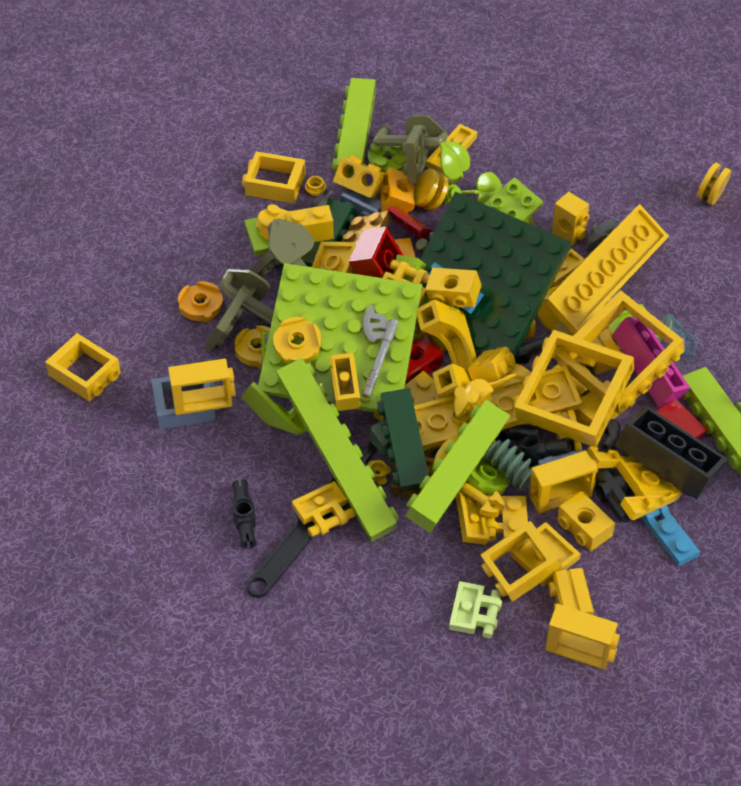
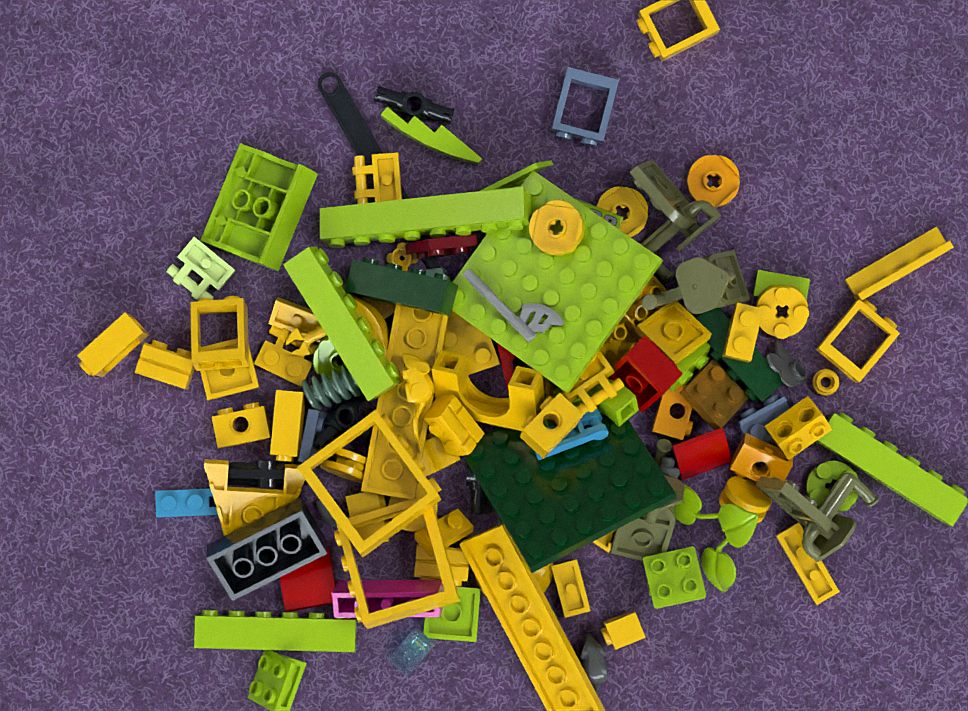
camera: 115 degrees right, 35 degrees up
(204, 398) = (563, 116): yellow window -> none
(205, 177) = (898, 264): none -> yellow fence
(264, 486) = (440, 141): none -> lime slope
(344, 381) = (481, 251): yellow brick -> none
(357, 429) = (441, 246): none -> dark red plate
(394, 590) = (259, 207): none -> lime piece

